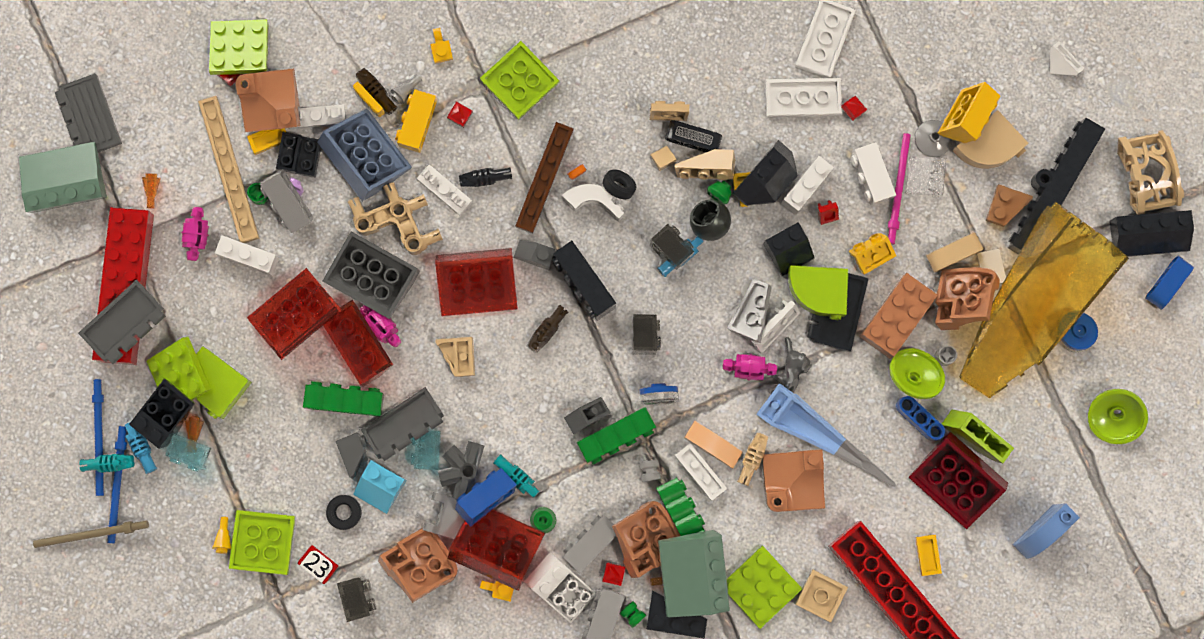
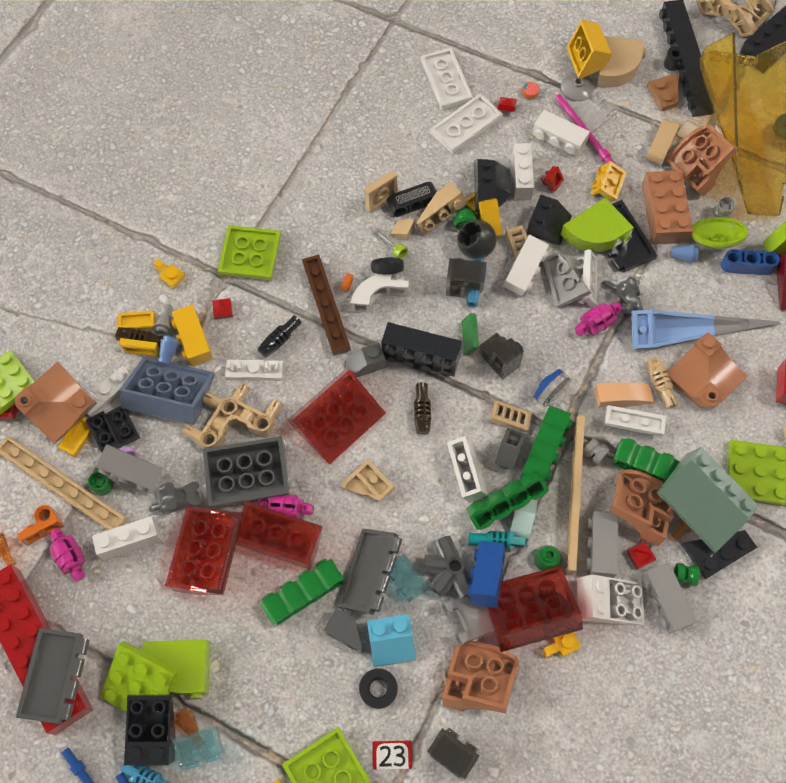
camera: 30 degrees left, 15 degrees down
(182, 195) = (42, 527): none -> orange plate
(302, 252) = (174, 498): none -> dark grey animal
(384, 71) = (139, 320): none -> yellow tile
(390, 118) = (167, 348): none -> medium blue cone
(538, 406) = (467, 469): none -> white brick
(541, 452) = (502, 502): none -> green brick
(552, 475) = (524, 519): none -> light aqua slope
(601, 376) = (501, 420): none -> tan slope
(605, 489) = (575, 493): none -> tan tile
(637, 297) = (470, 334): none -> green tile
(642, 176) = (399, 250): none -> lime hinge
(732, 275) = (526, 266): none -> white brick
(741, 207) = (490, 213): none -> yellow tile
(752, 236) = (514, 235): none -> tan slope
(876, 368) = (687, 252): none -> medium blue cone
(888, 109) = (530, 90): none -> tile

